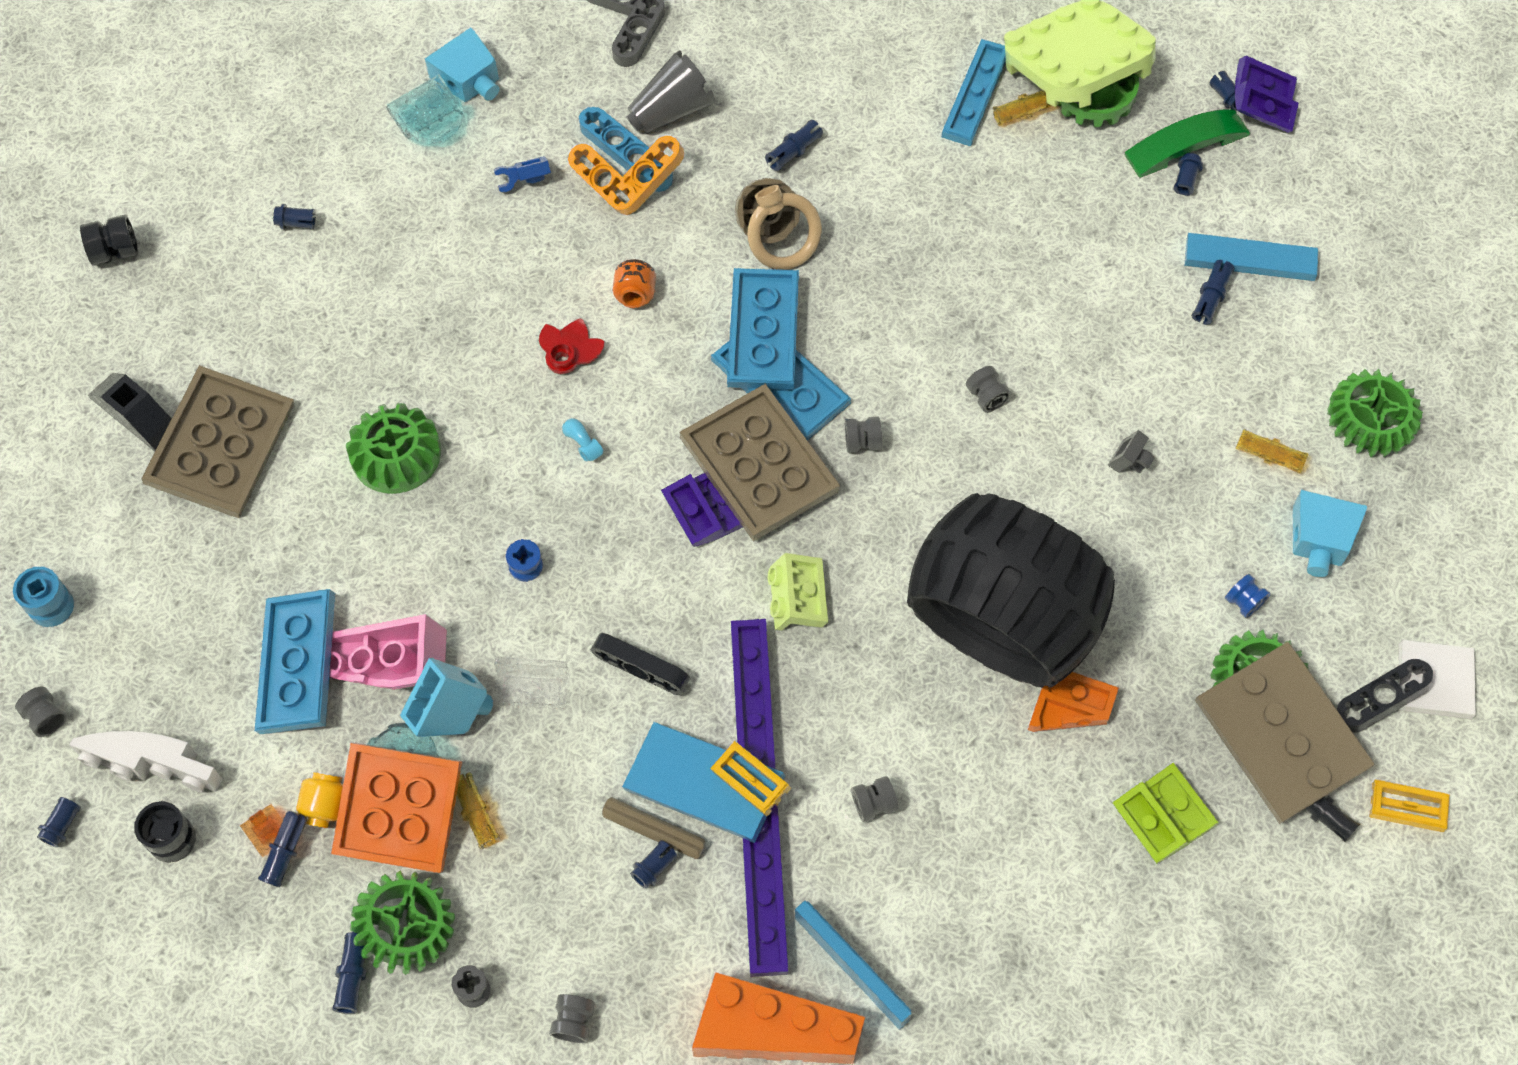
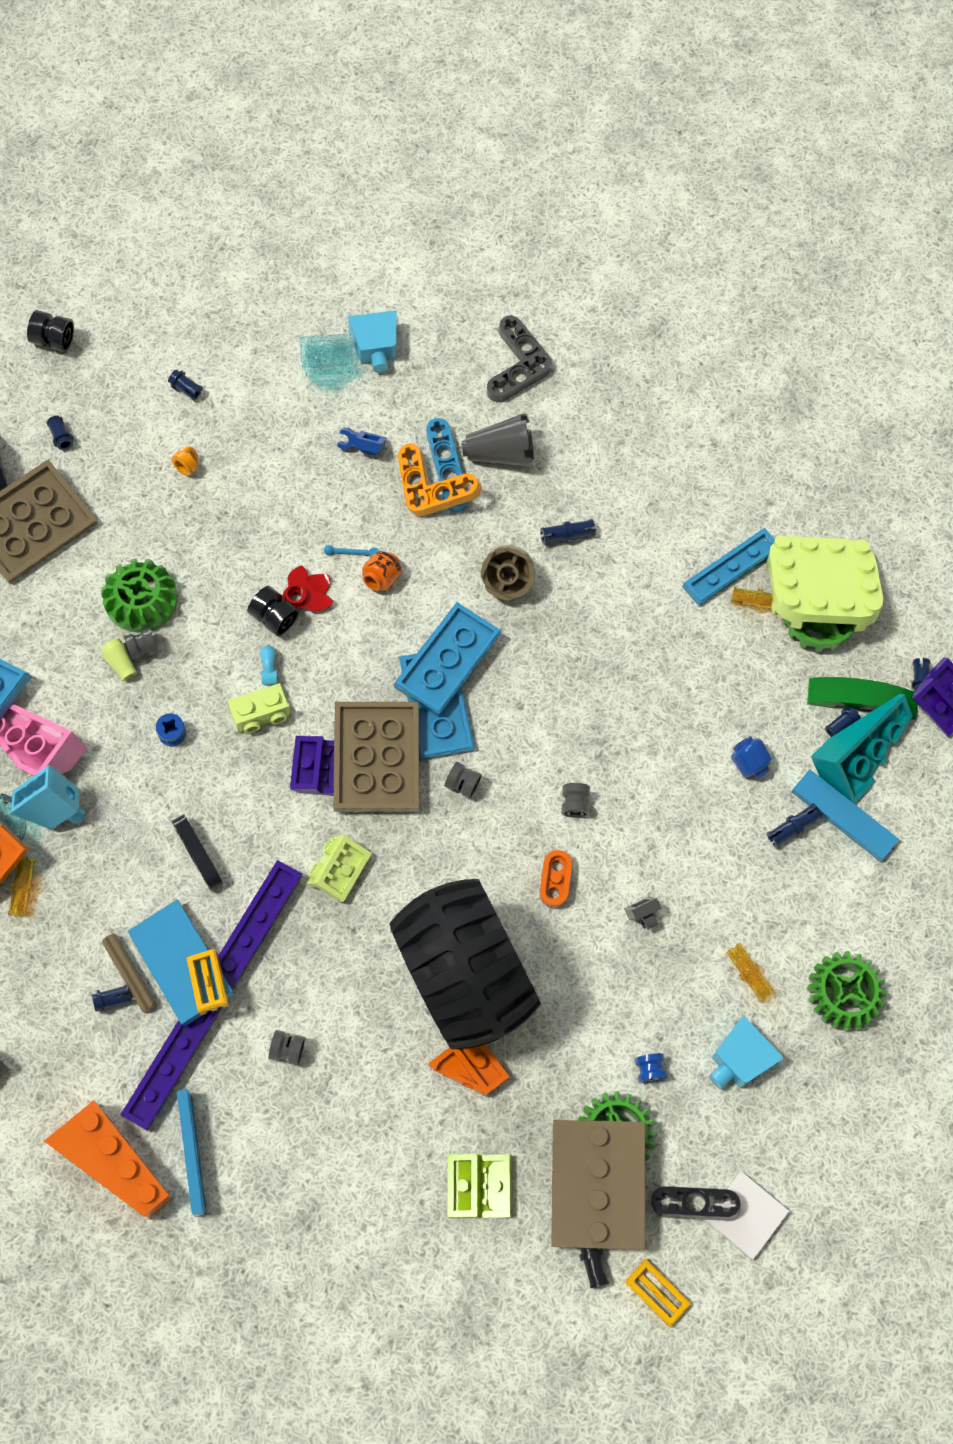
camera: 25 degrees right, 5 degrees up
(196, 339) = (61, 437): none -> dark blue pin
(349, 290) = (185, 463): none -> light orange tile
(415, 521) = (118, 657): none -> yellowish green cone
(431, 494) = (141, 644): none -> dark grey wheel
(545, 382) = (269, 607): none -> black wheel
(562, 295) = (328, 550): none -> dark azure hinge
(602, 487) = (259, 708): none -> yellowish green bracket
(771, 201) = (510, 569): tan piece -> none
(1024, 476) = (555, 879): none -> orange plate
(1127, 252) = (751, 757): none -> blue head
(1221, 187) = (855, 753): none -> teal wedge

